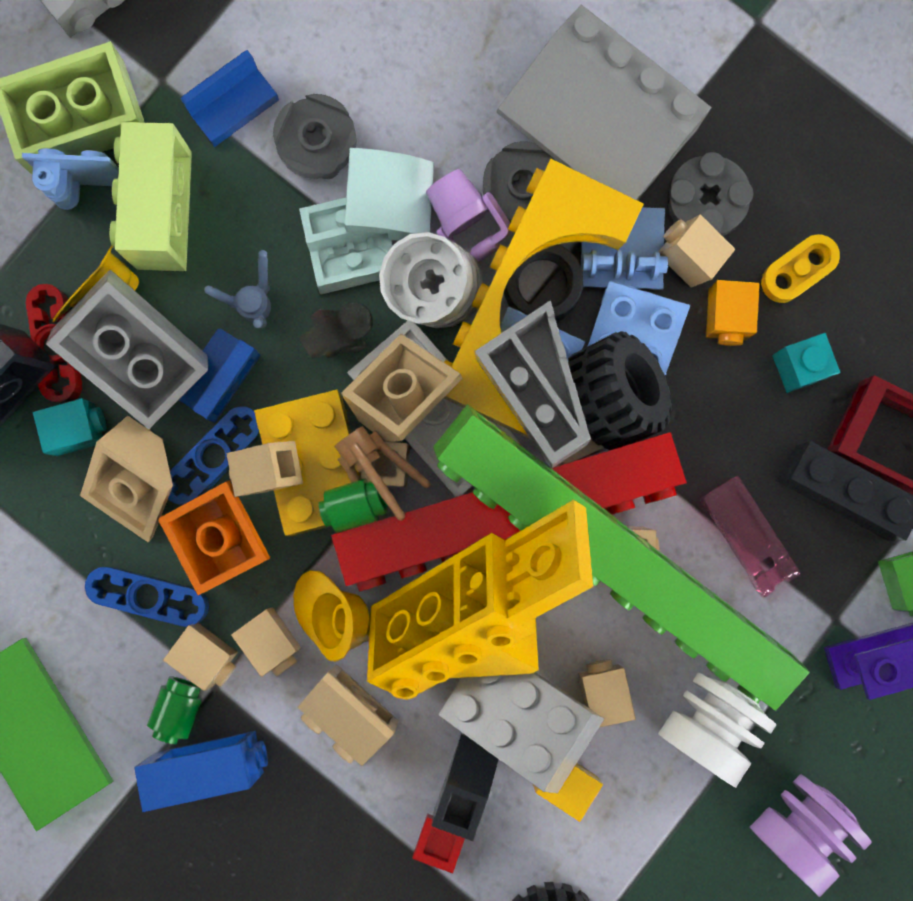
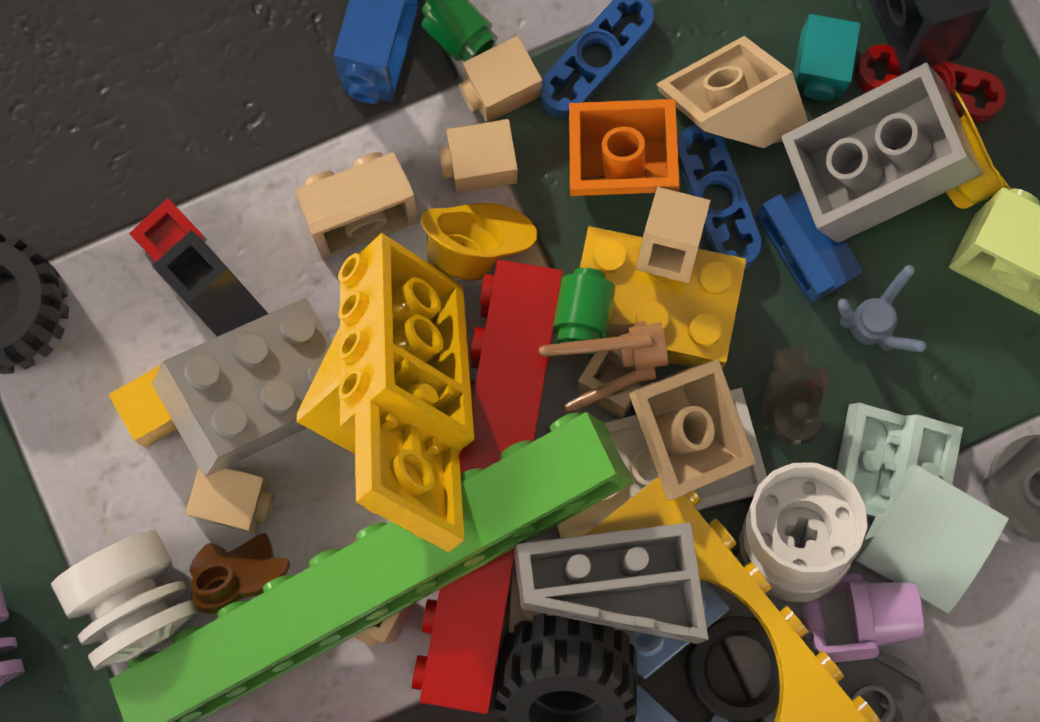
camera: 115 degrees right, 5 degrees down
(658, 662) = (228, 576): none -> reddish brown plate

